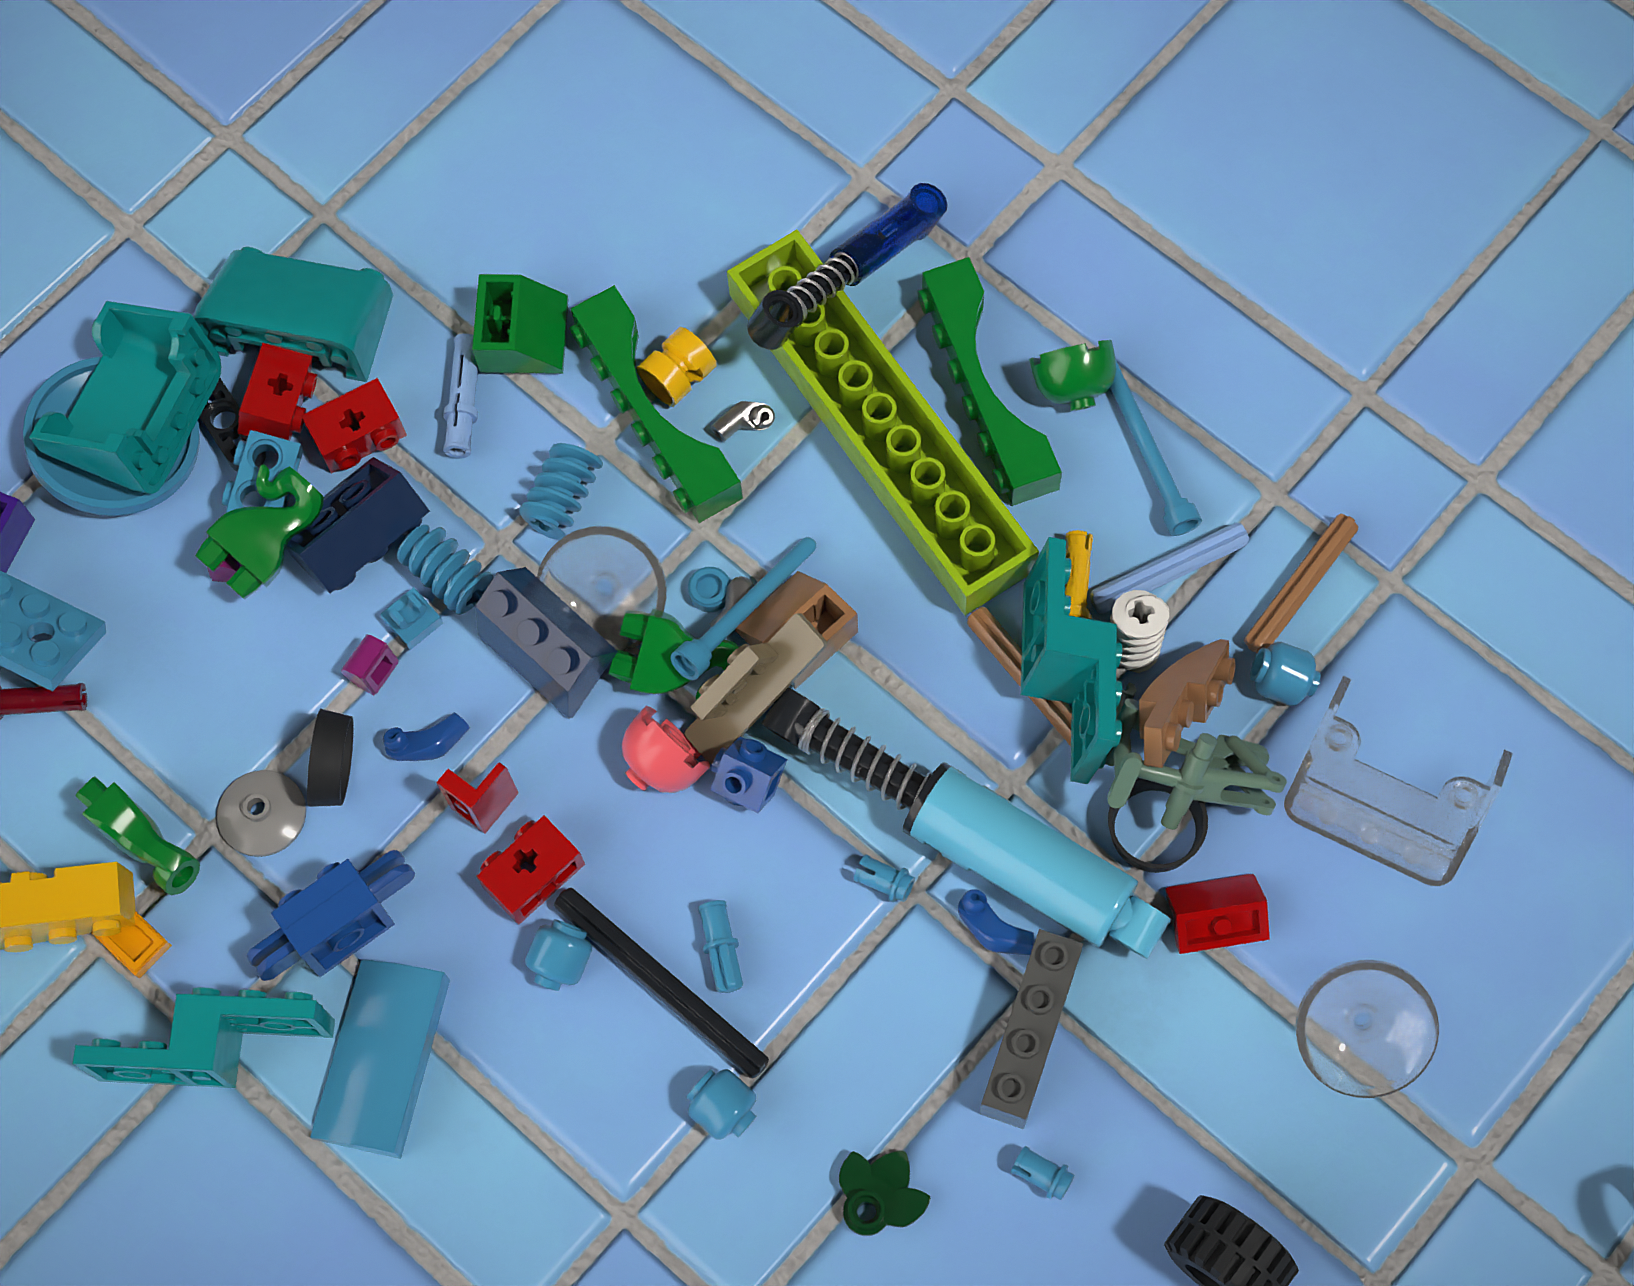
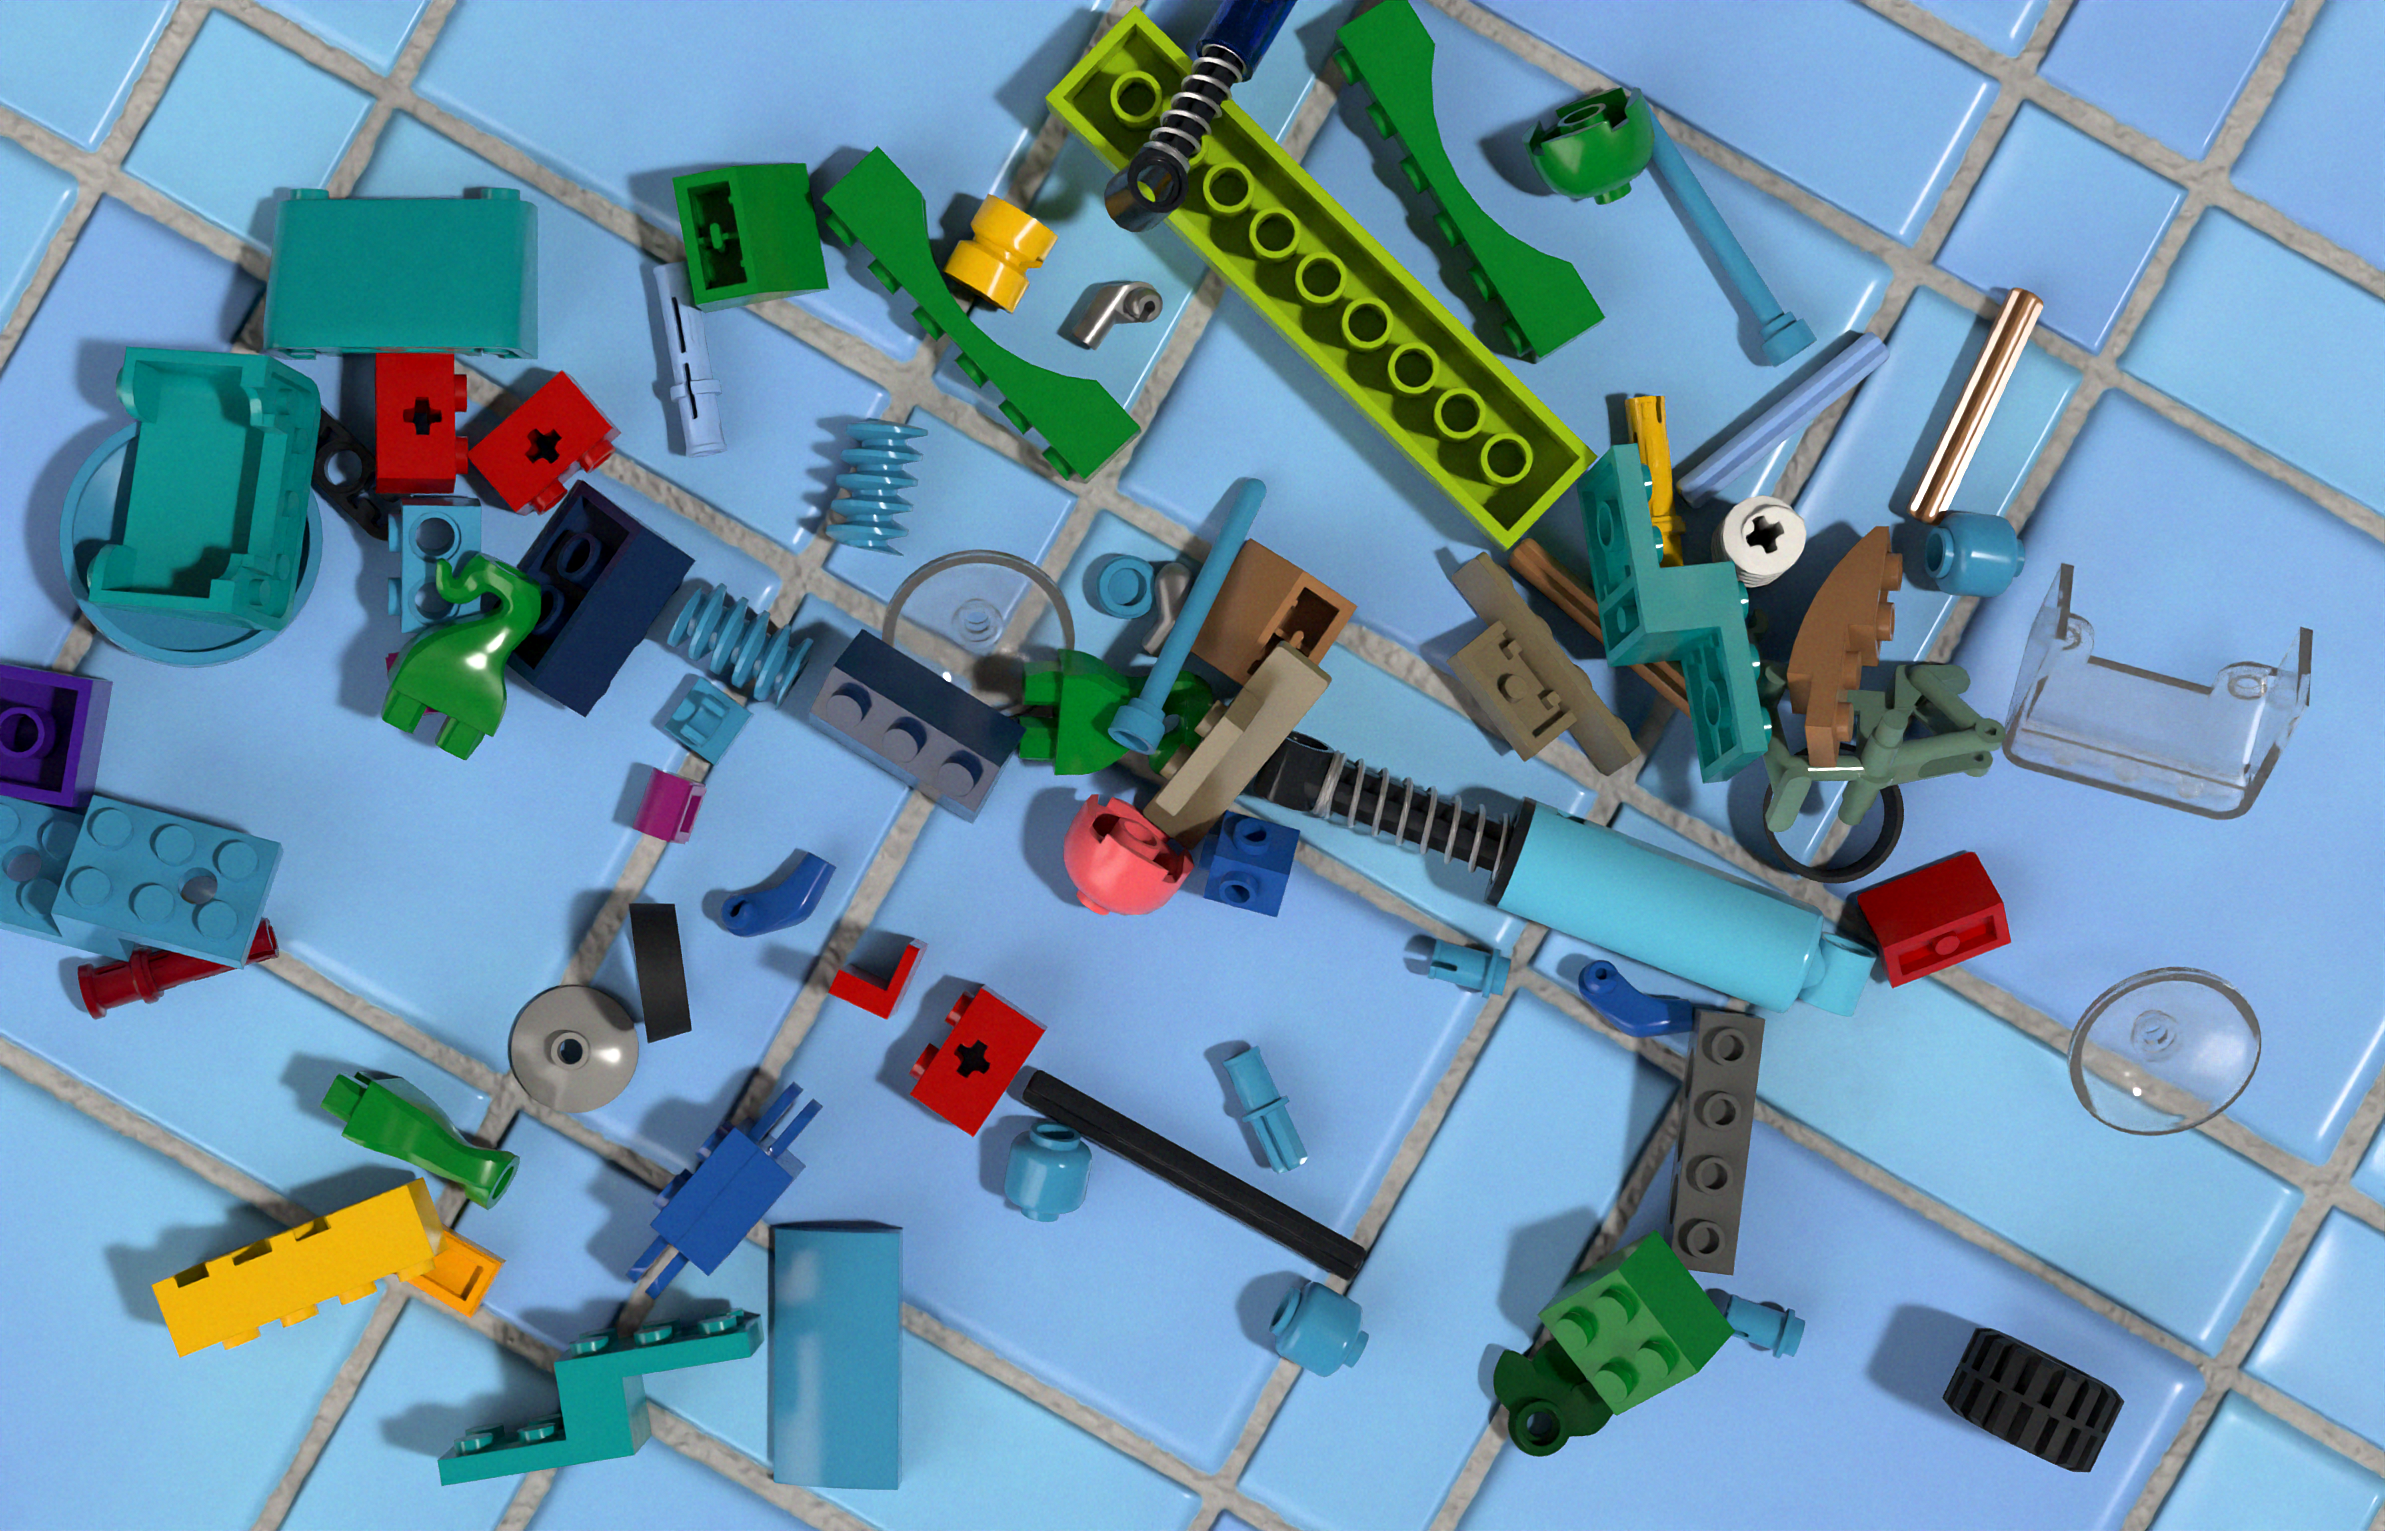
camera: 20 degrees left, 20 degrees up
(949, 1139) = (1636, 1323): none -> green brick
(966, 695) = (1528, 679): none -> dark tan bracket

